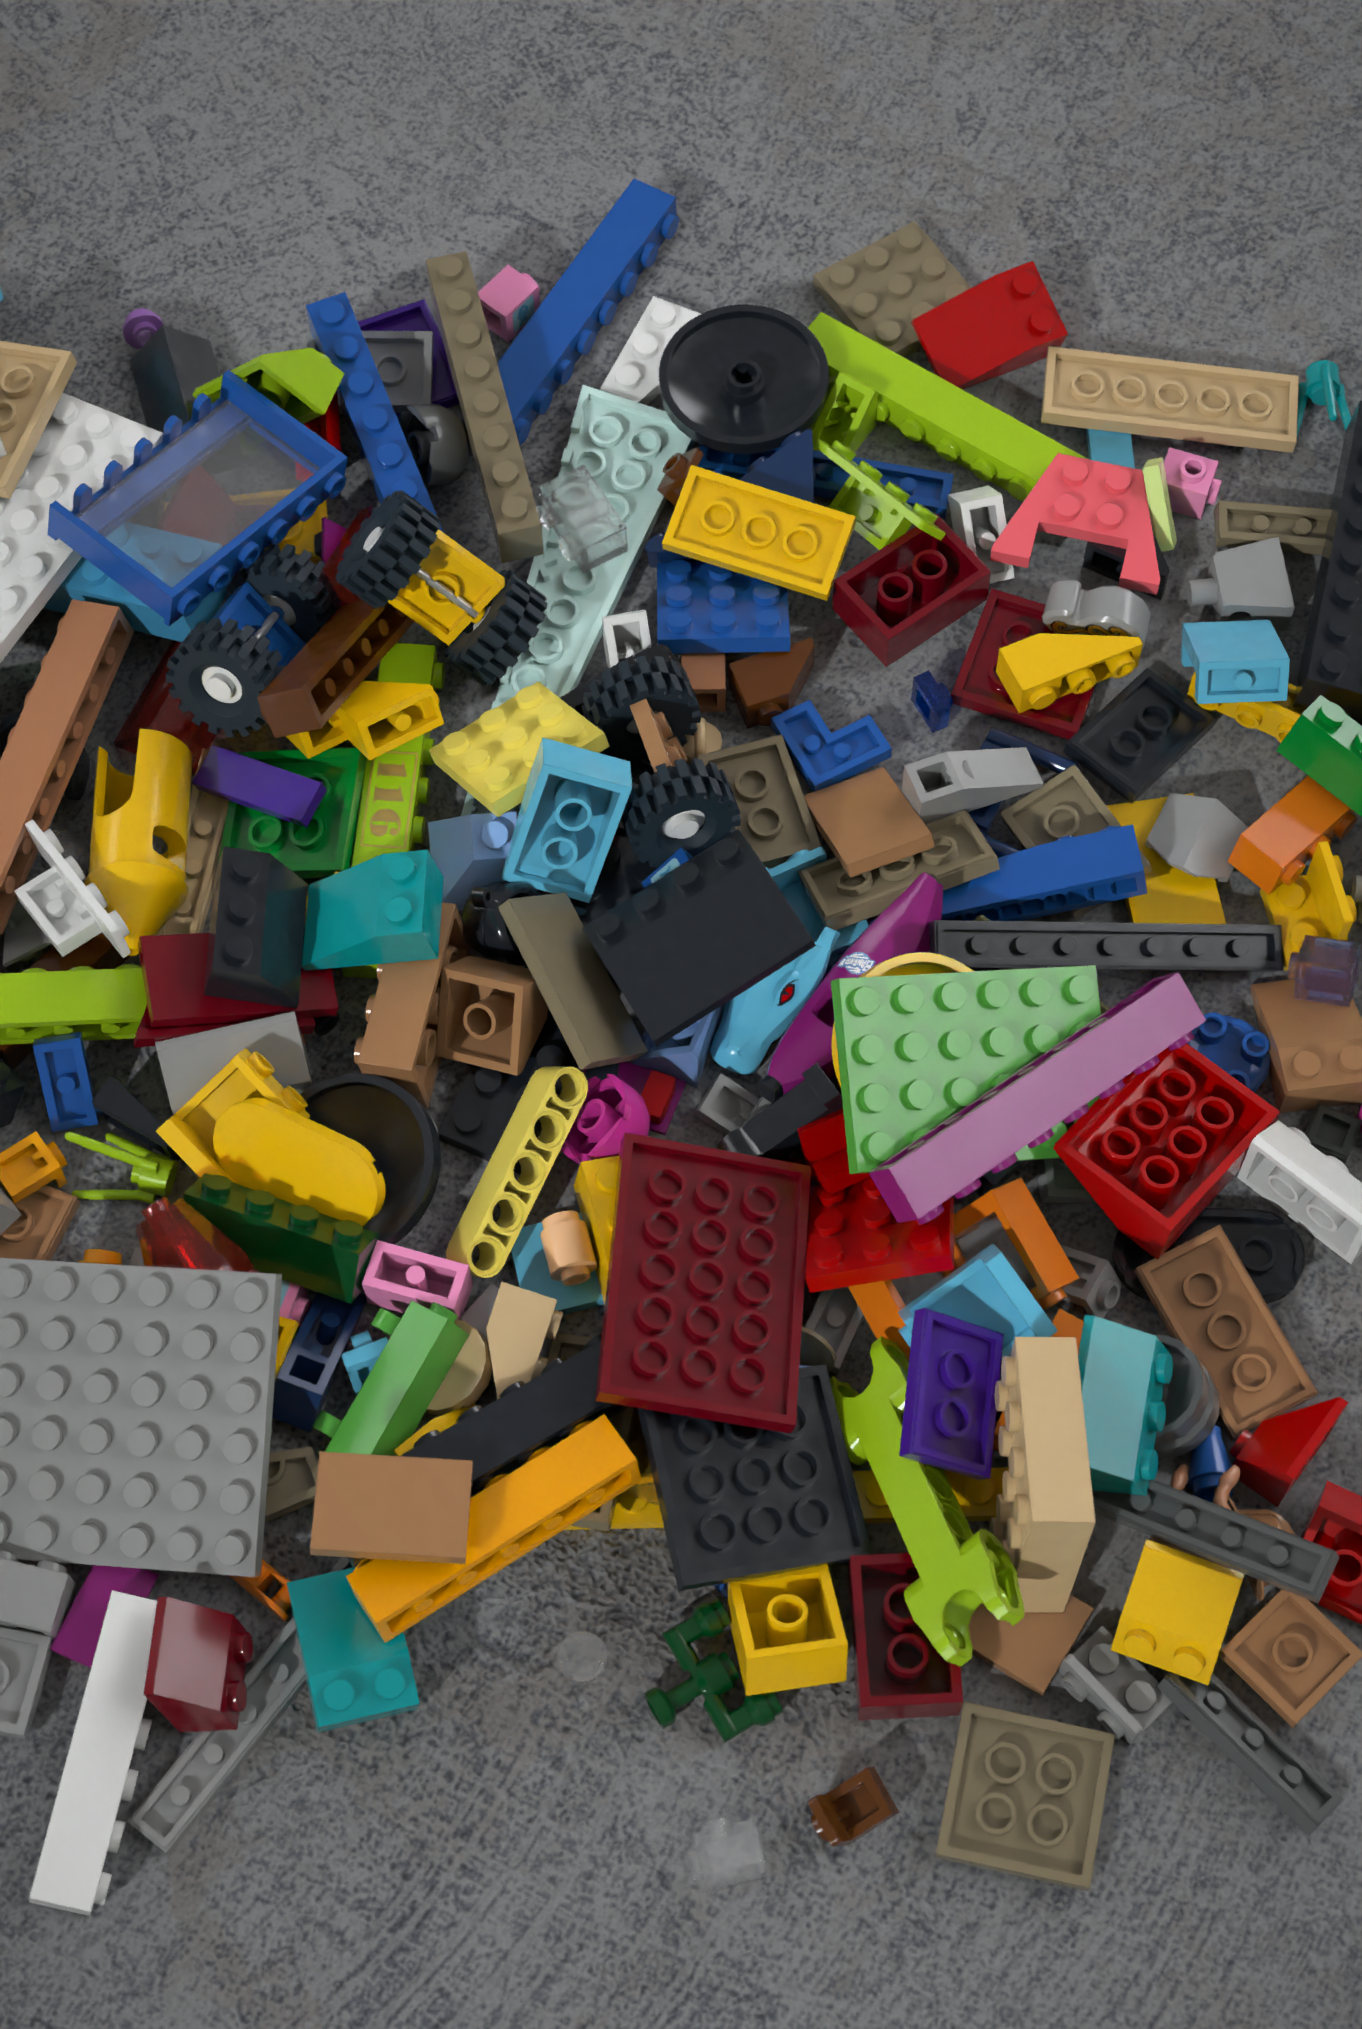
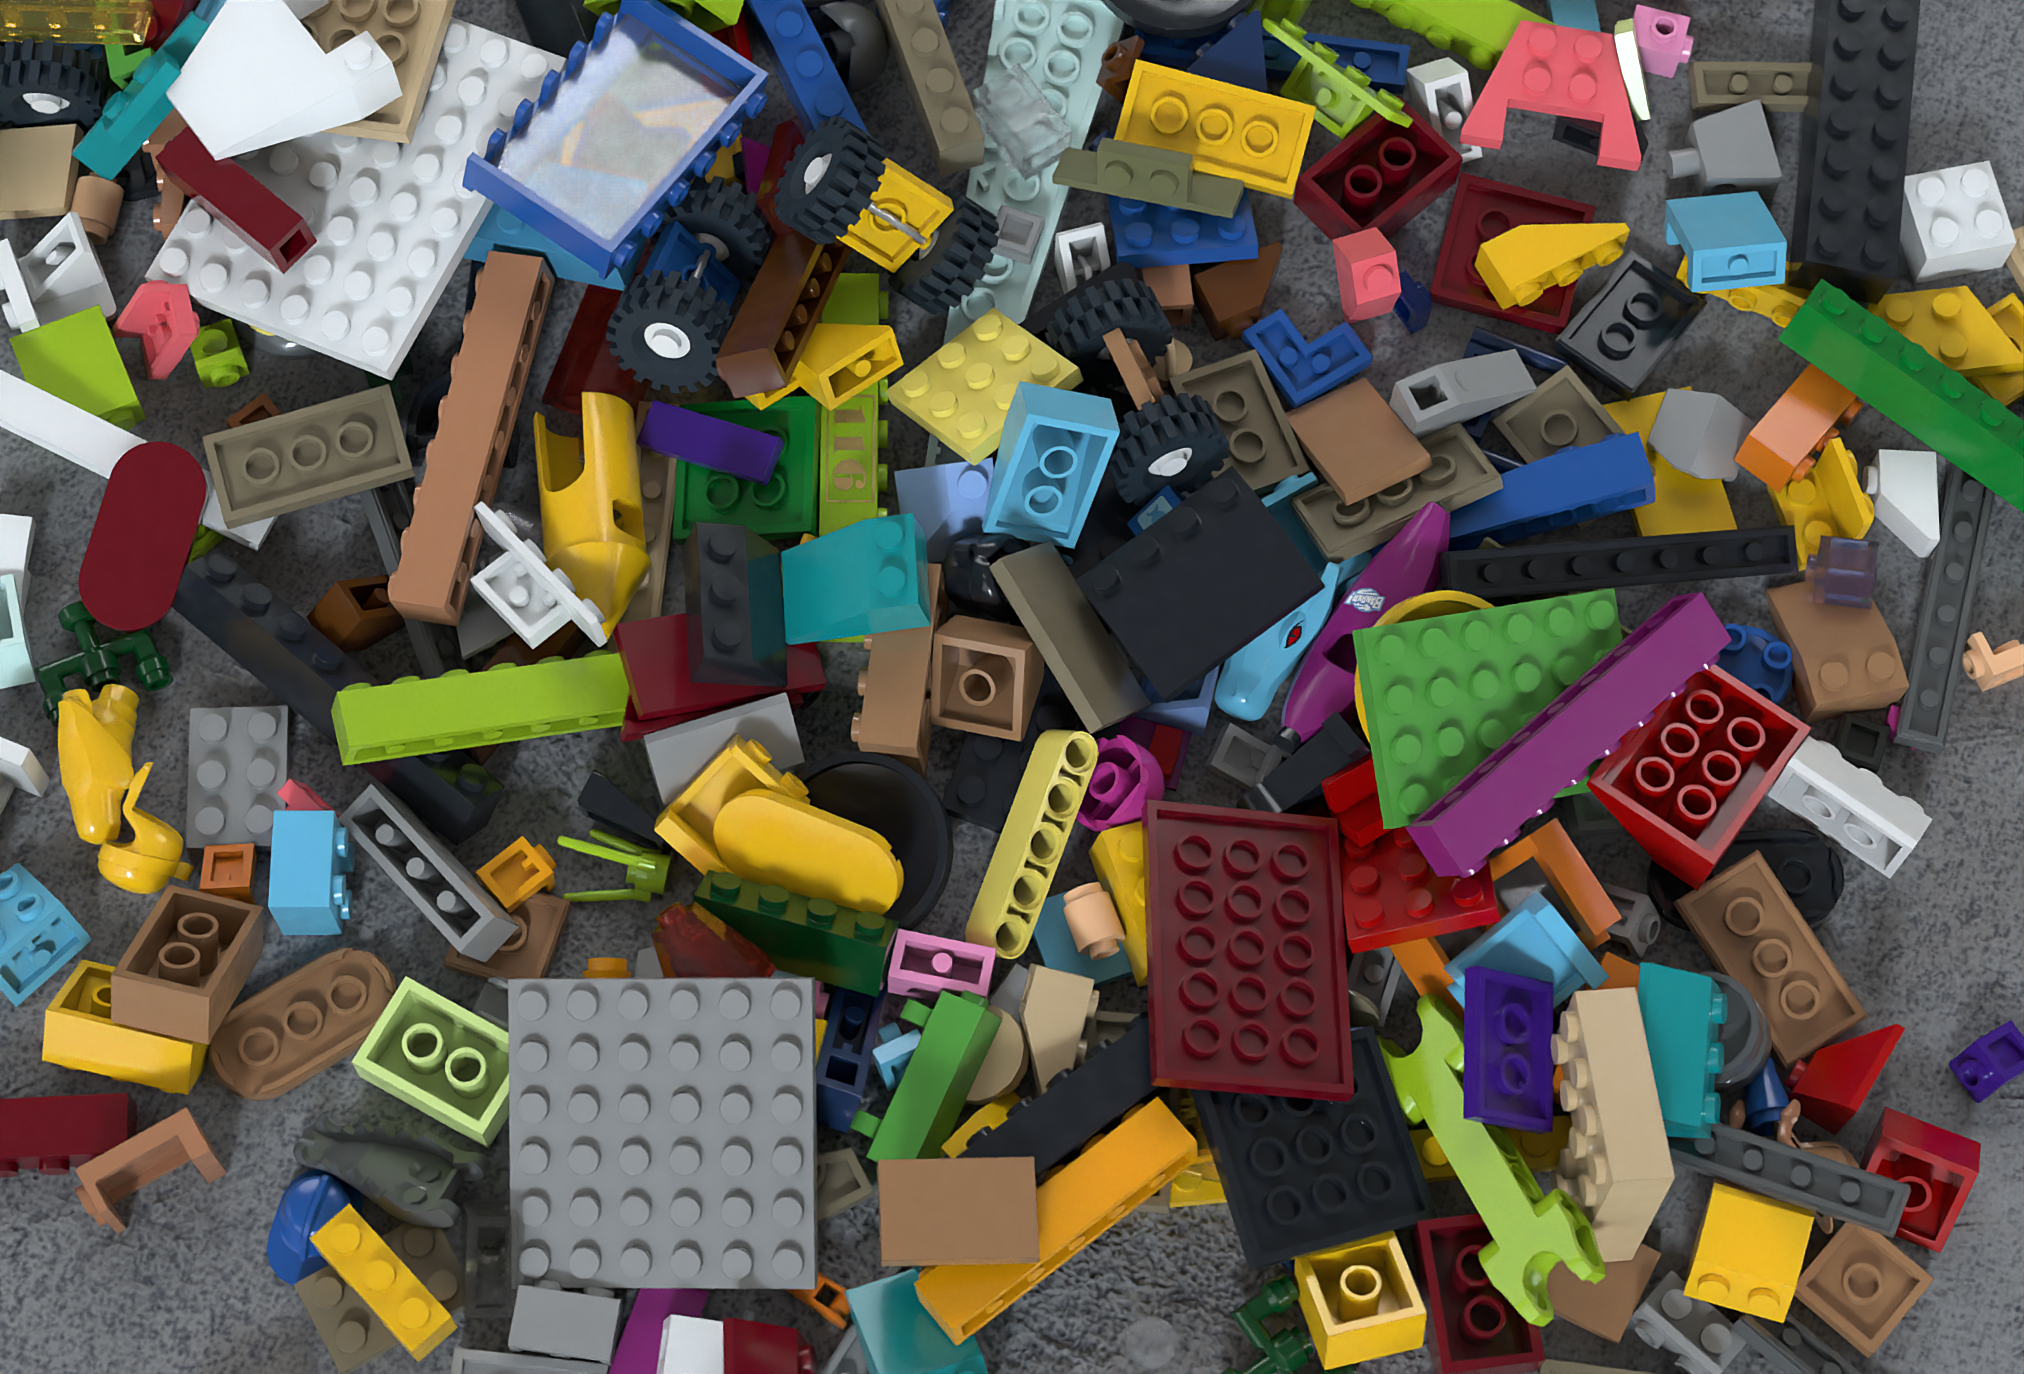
camera: 10 degrees left, 5 degrees up
(65, 1081) = (546, 779): blue plate -> none
(567, 619) = (1017, 234): none -> light grey tile
(693, 569) = (1148, 176): none -> olive bracket
(890, 673) = (1366, 275): none -> coral slope
(1096, 611) = (1575, 195): light grey animal -> none

